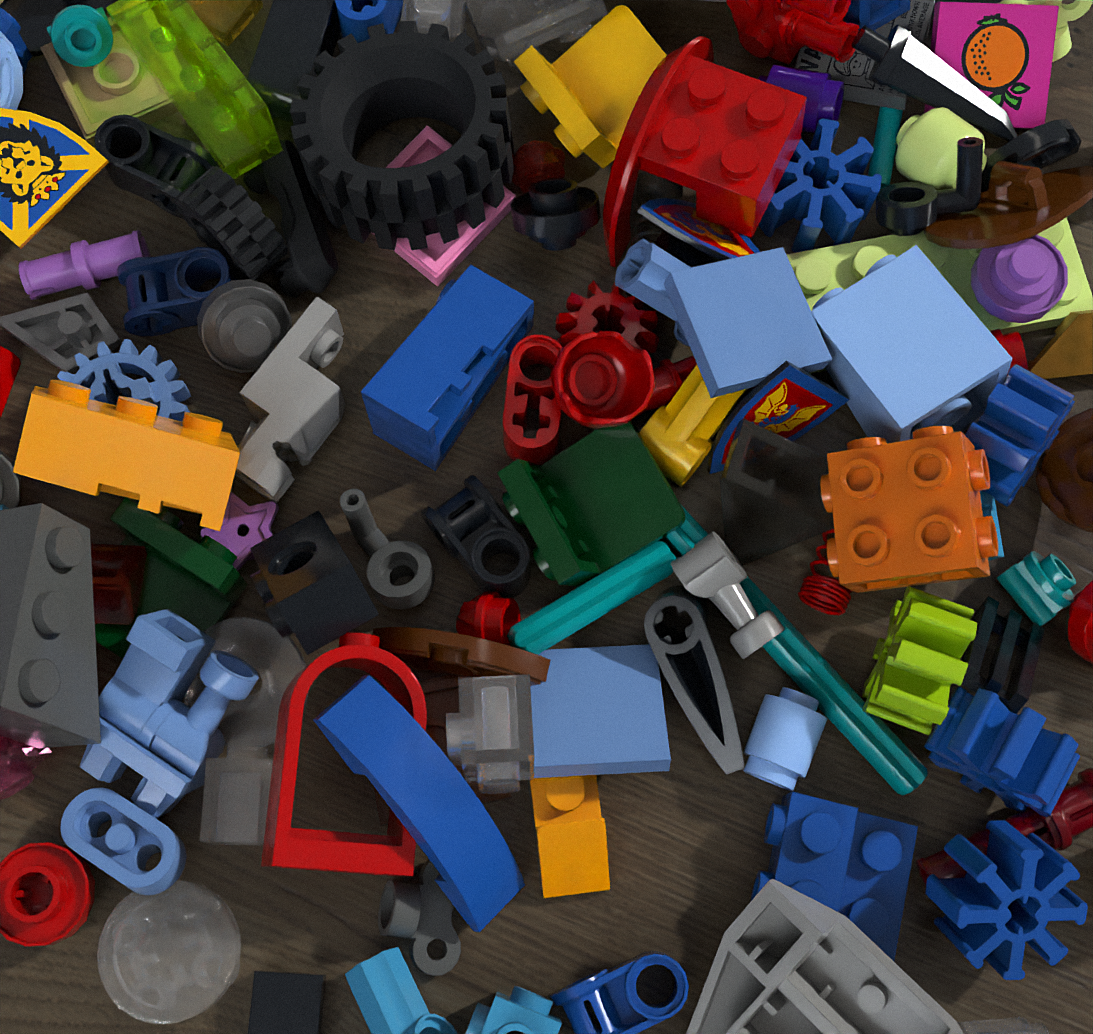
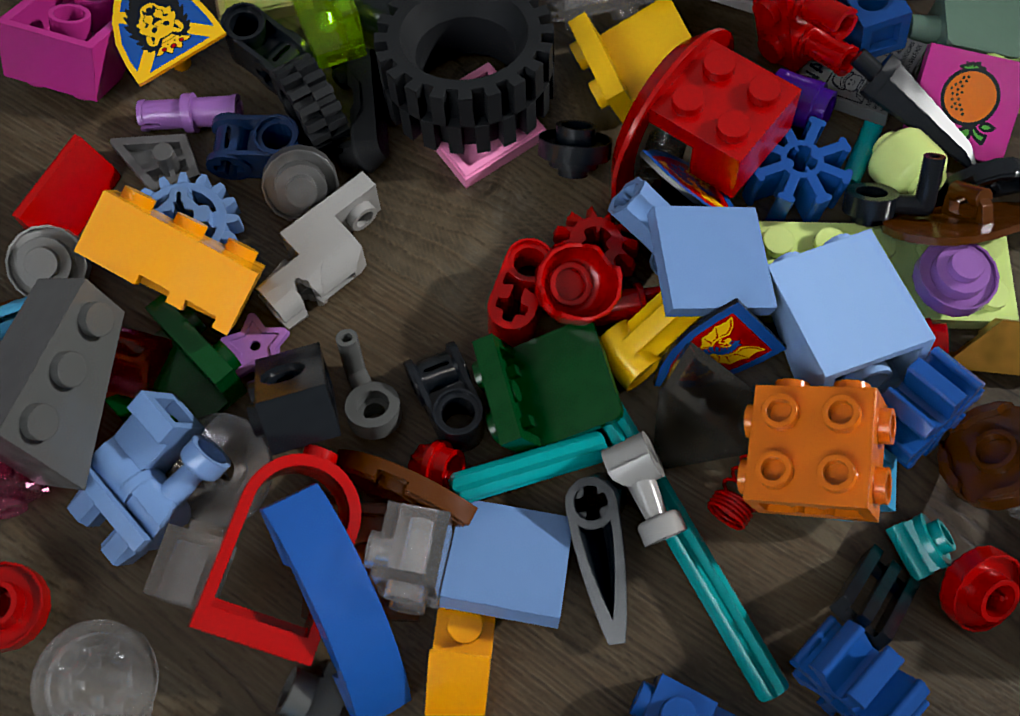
camera: 15 degrees right, 5 degrees down
(127, 843) = (85, 581): medium blue plate -> none
(447, 366) = (452, 249): blue wedge -> none
(537, 162) = (569, 105): clear red plate -> none
(784, 738) = (666, 625): light blue brick -> none
(919, 660) = (800, 584): lime gear -> none

